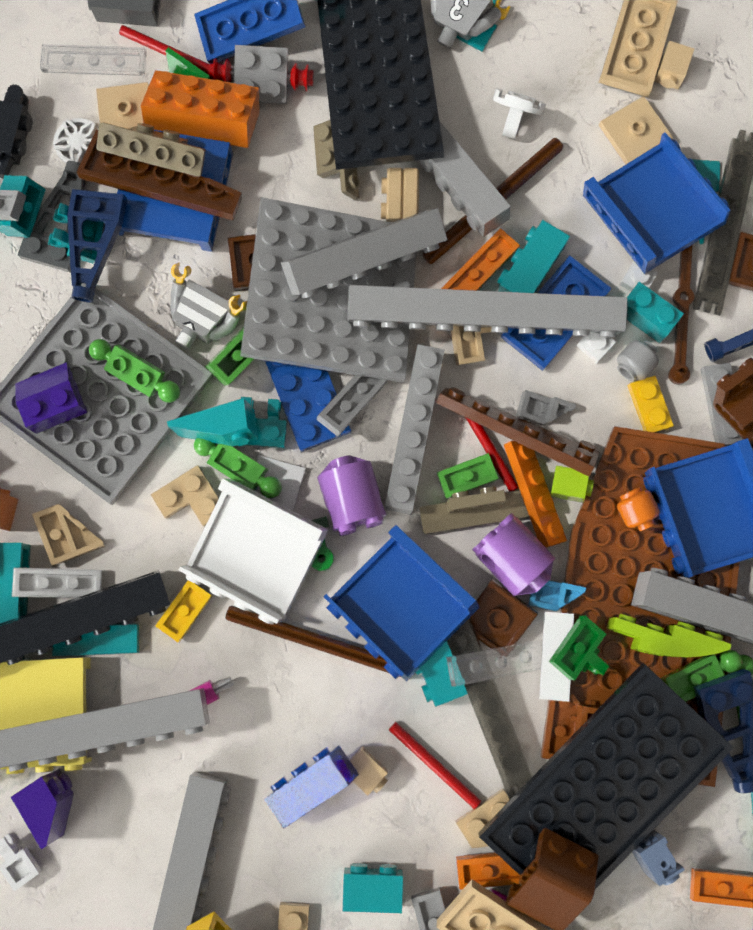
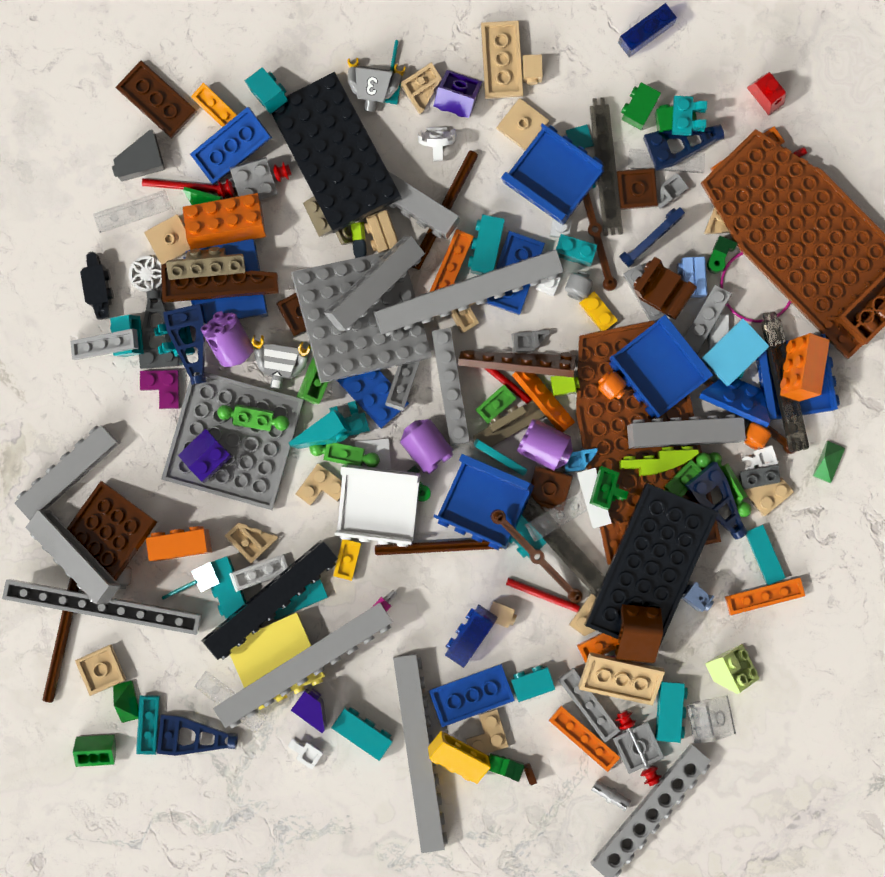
camera: 20 degrees left, 5 degrees up
(43, 288) = (166, 382): none -> magenta plate
(106, 867) = (362, 733): none -> teal brick
(141, 255) = (227, 339): none -> medium lavender cylinder
(280, 871) = (471, 695): none -> blue plate
(368, 194) = (358, 236): none -> piece
(413, 632) = (499, 517): none -> reddish brown piece
(447, 549) = (500, 457): none -> teal tile
(522, 37) = (421, 86): none -> tan wing
(564, 63) = (457, 94): none -> dark purple slope

